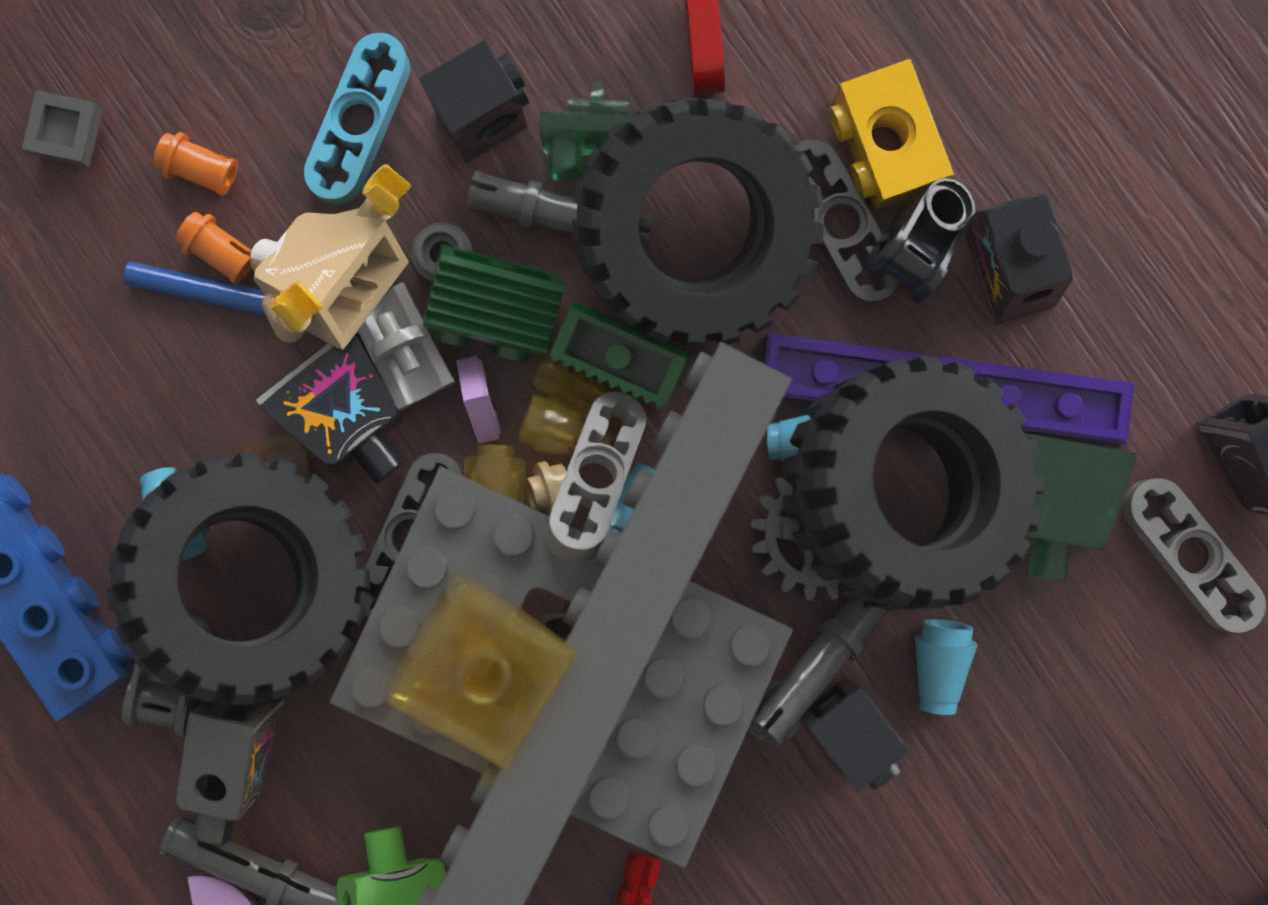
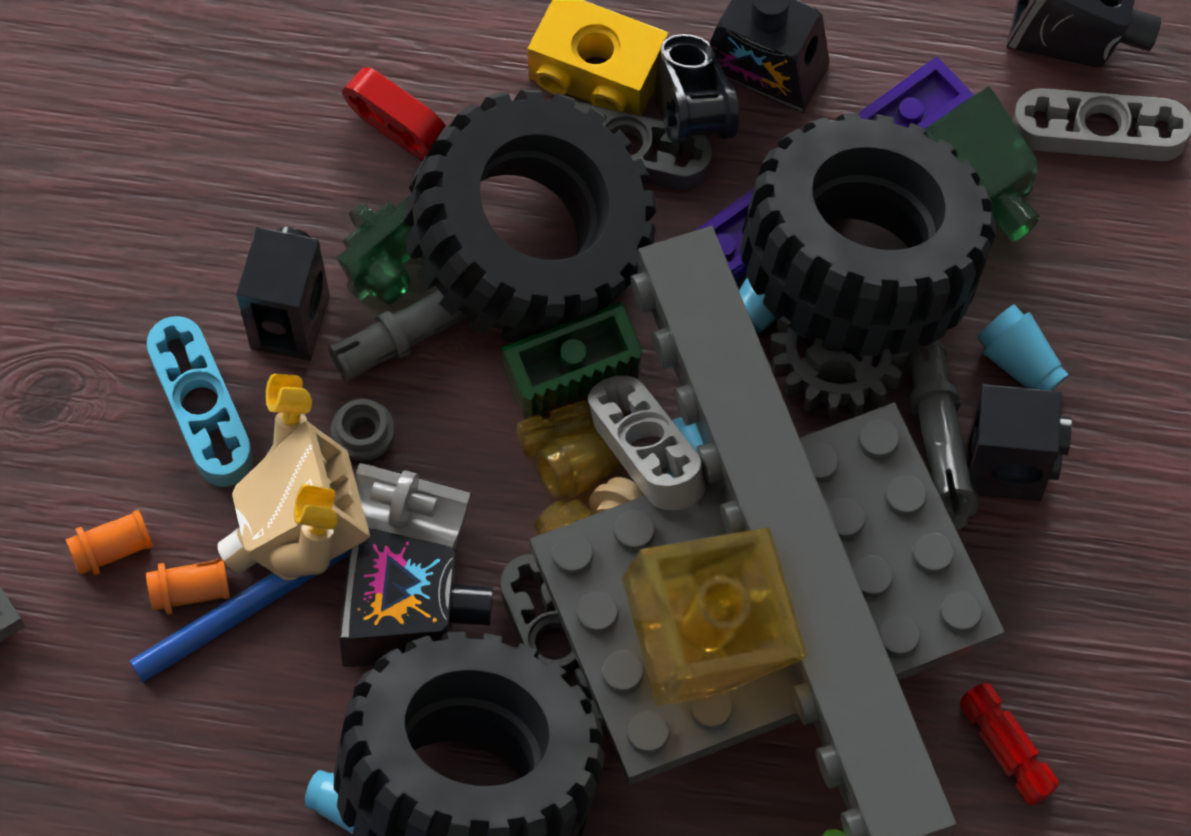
camera: 50 degrees left, 20 degrees down
(477, 399) = (500, 499): lavender tile -> none
(492, 303) = (440, 414): dark green brick -> none

